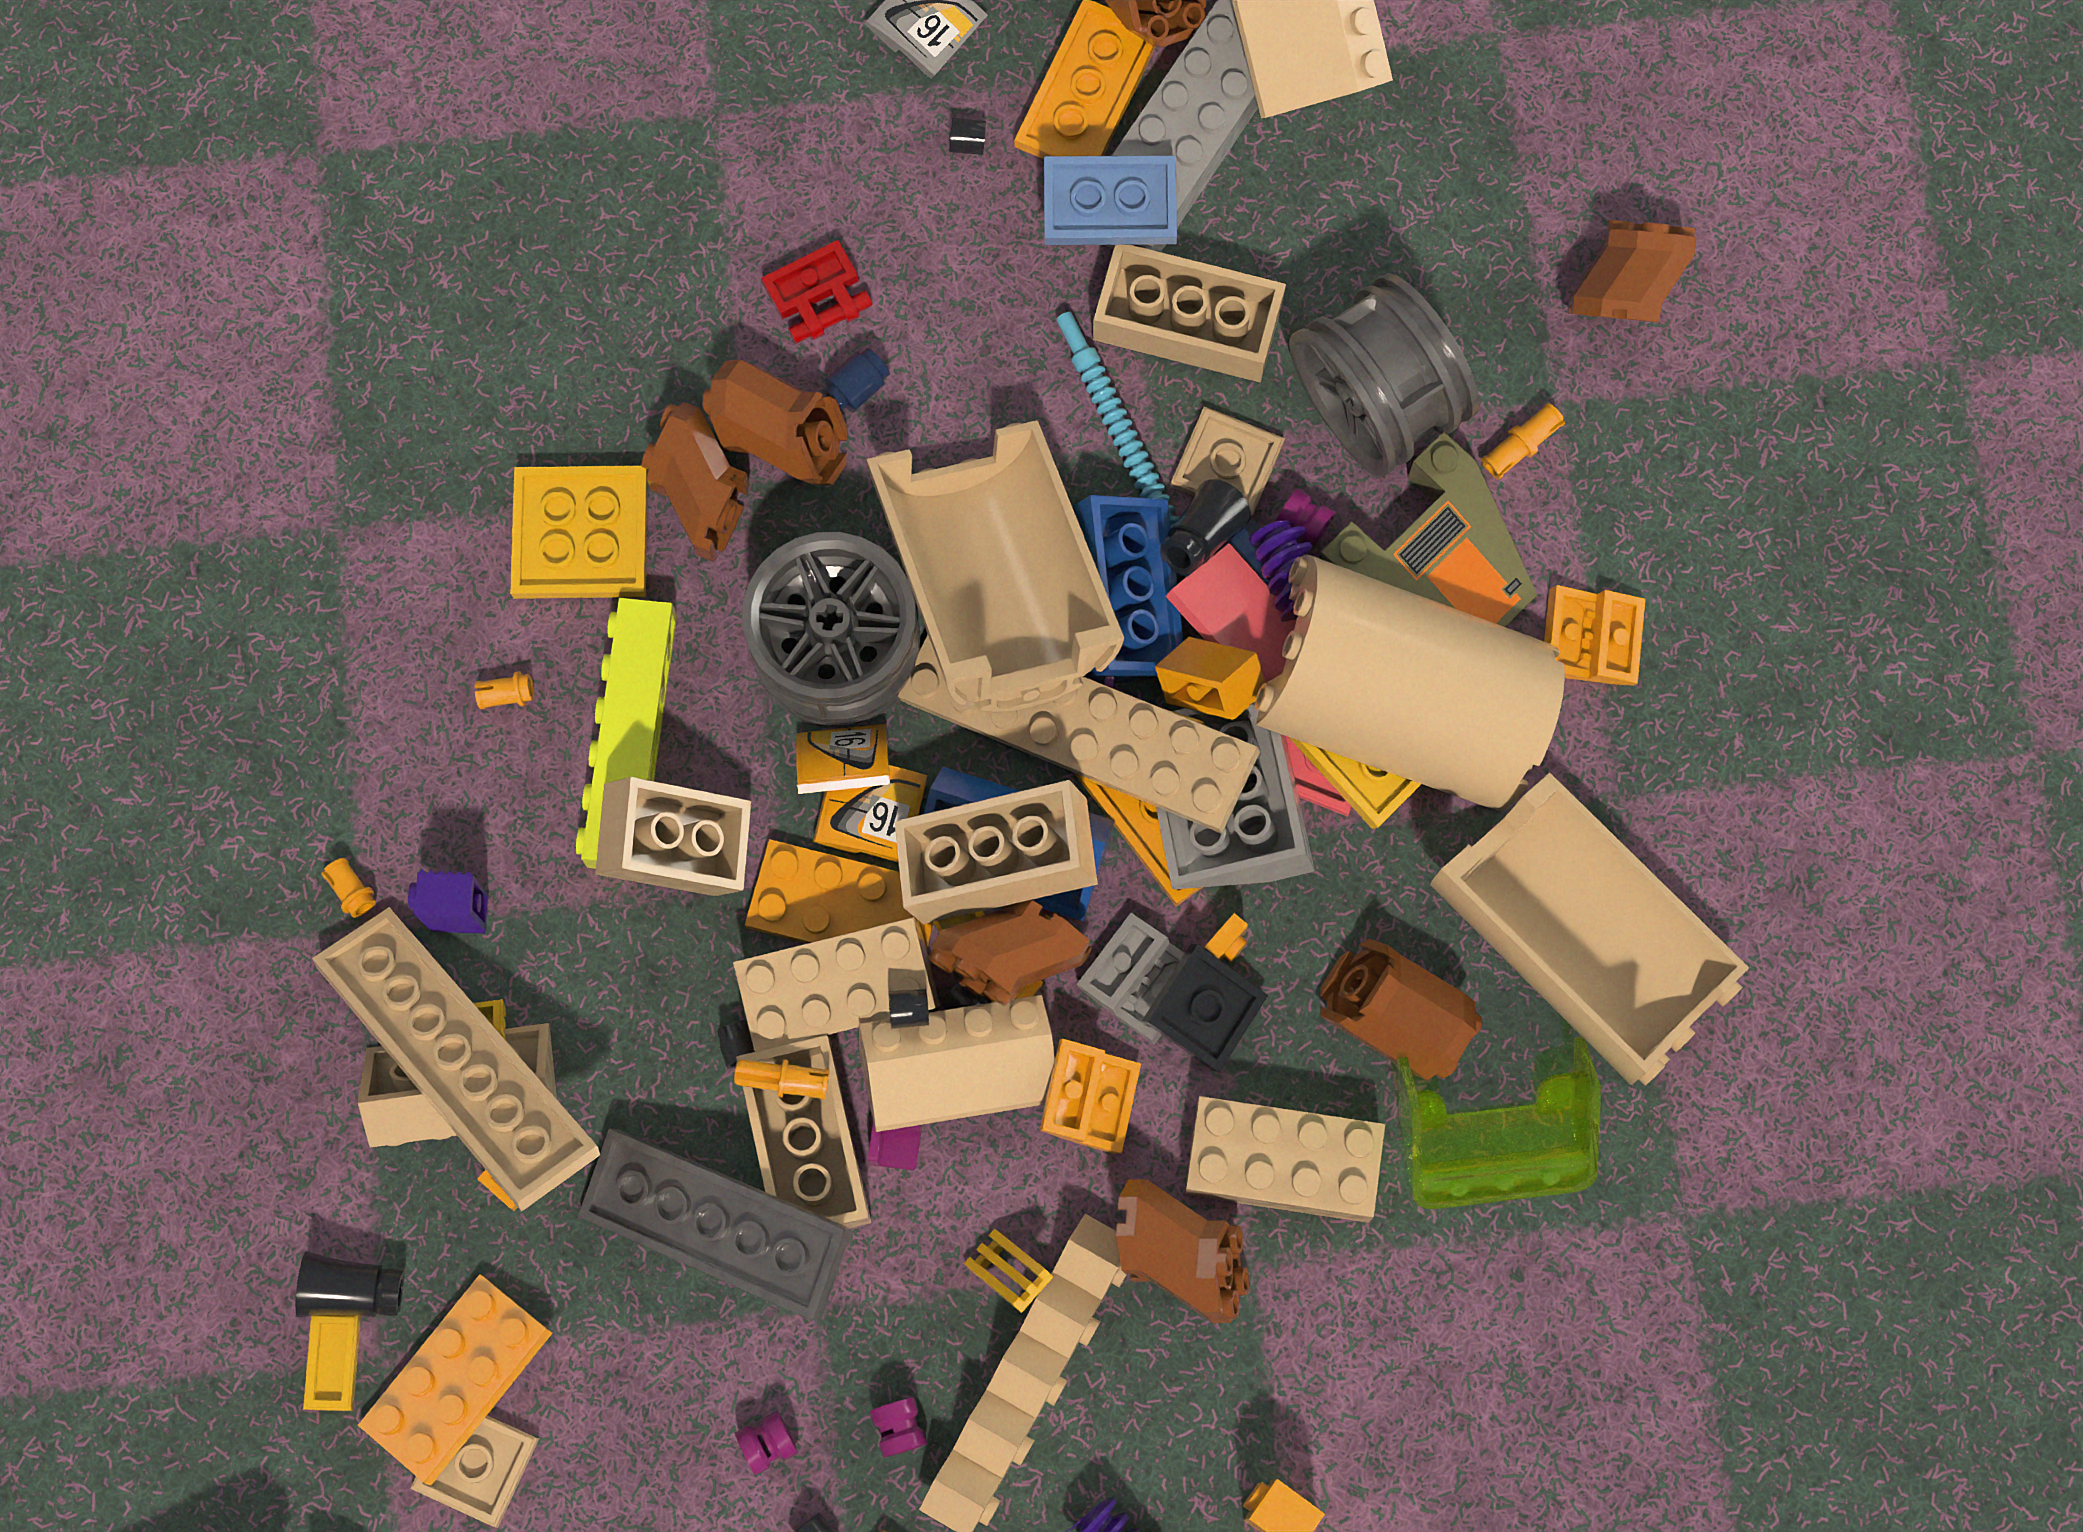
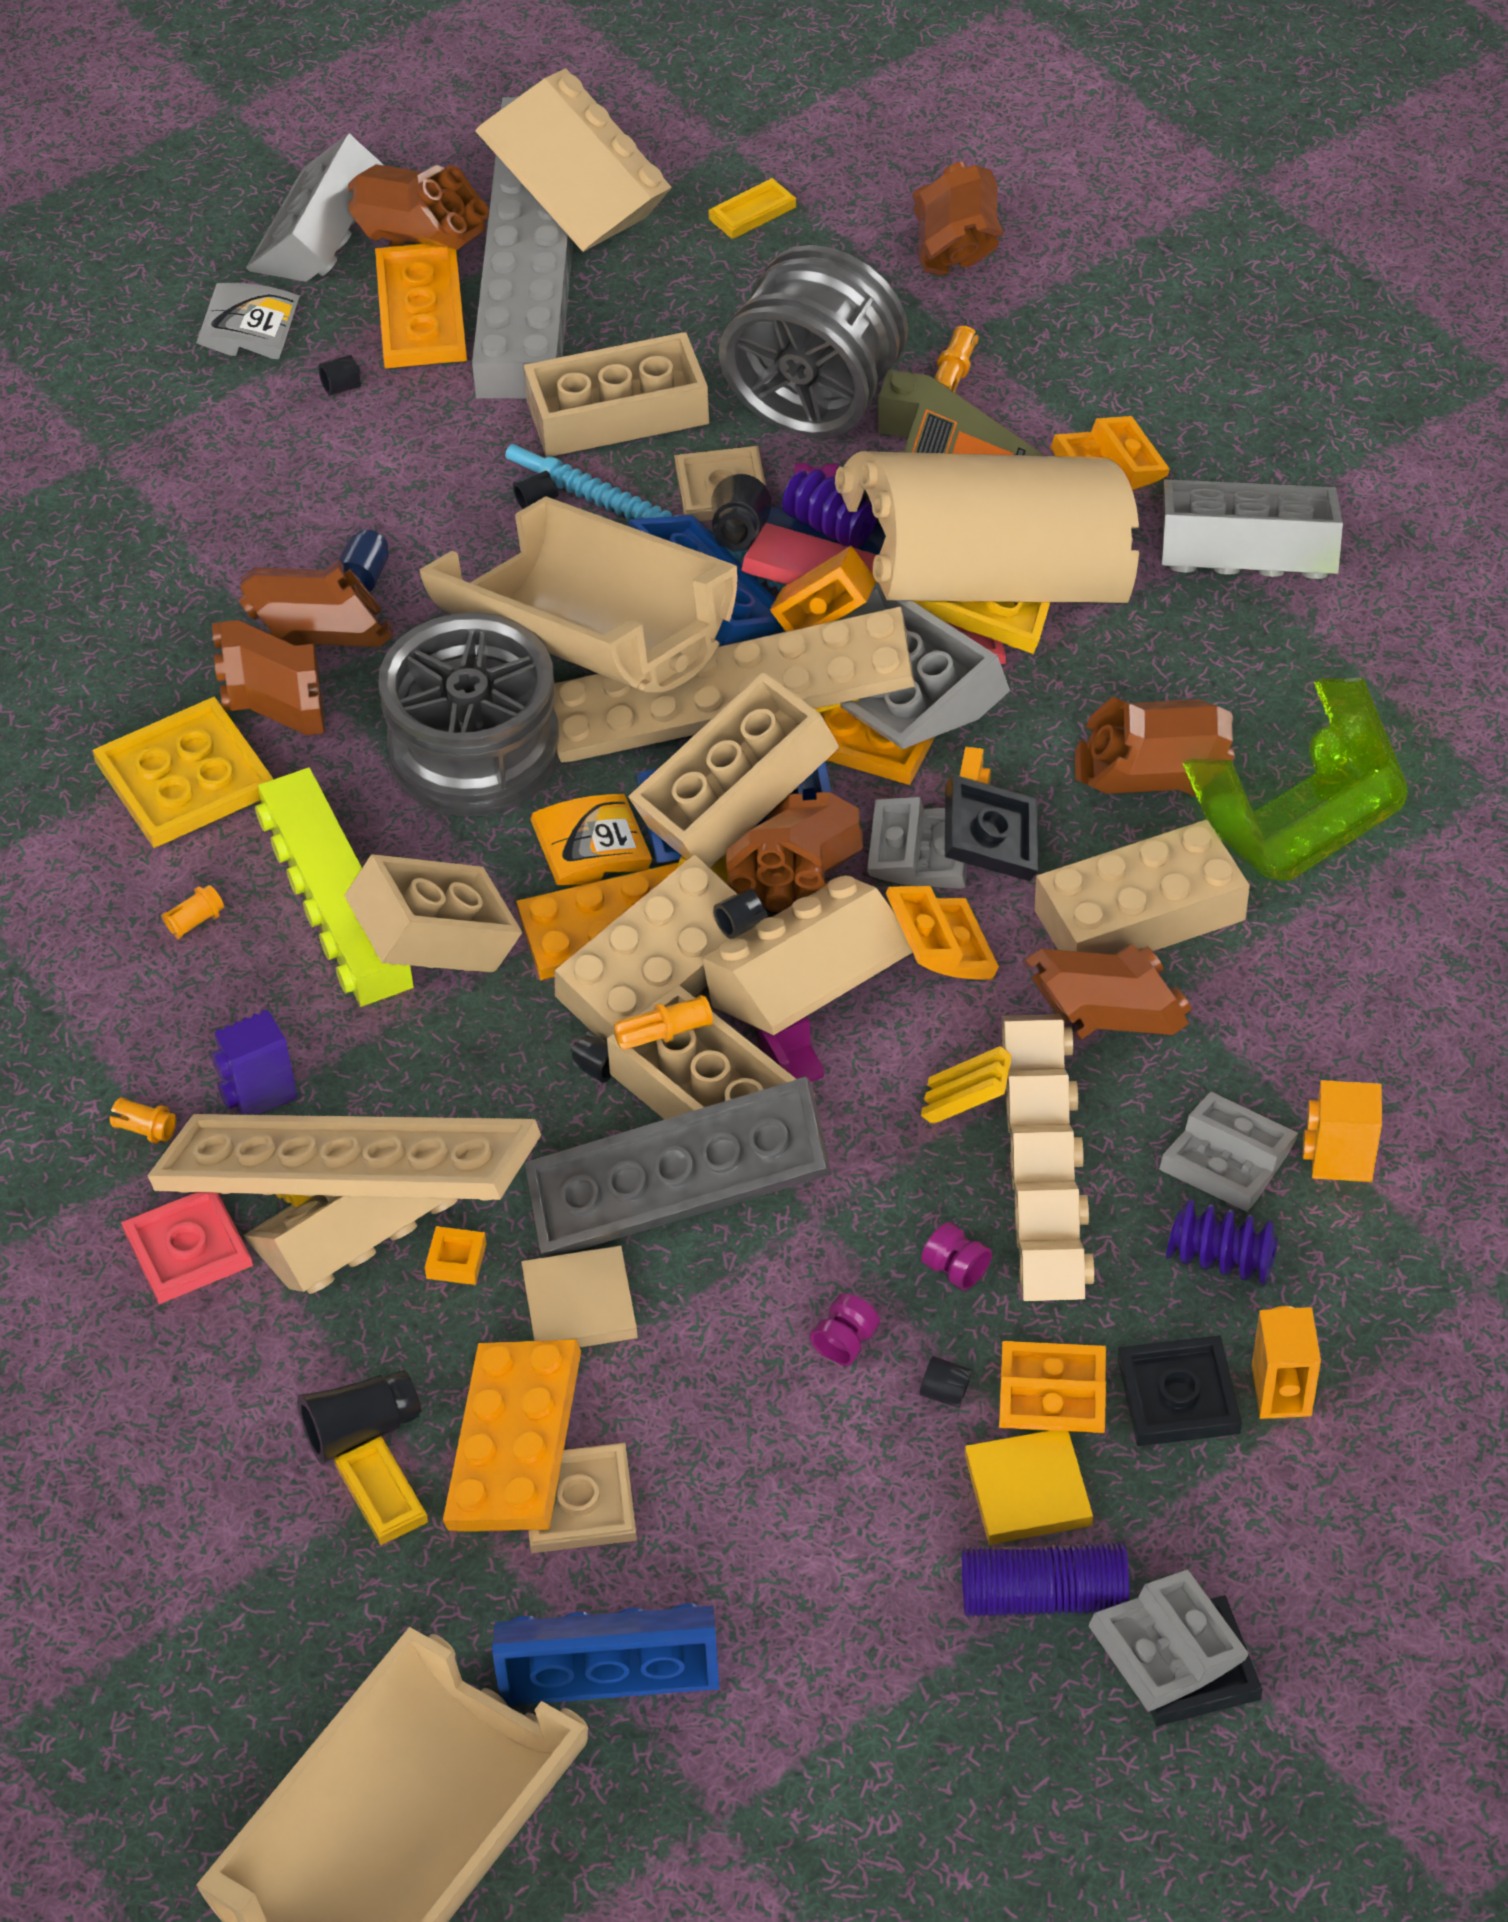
camera: 30 degrees left, 25 degrees down
(314, 1034) = (186, 1244): none -> coral tile
(584, 1276) = (580, 1297): none -> tan tile
(810, 281) = (273, 517): red plate -> none
(842, 758) = (543, 806): light orange slope -> none
(1055, 380) = (534, 488): none -> black hose
(1110, 200) = (500, 334): medium blue plate -> none
(1189, 1455) = (1228, 1151): none -> light grey slope
(1464, 132) = (752, 208): none -> yellow tile
(1591, 929) = (1263, 617): tan cylinder -> none
(1668, 794) = (1251, 528): none -> slope

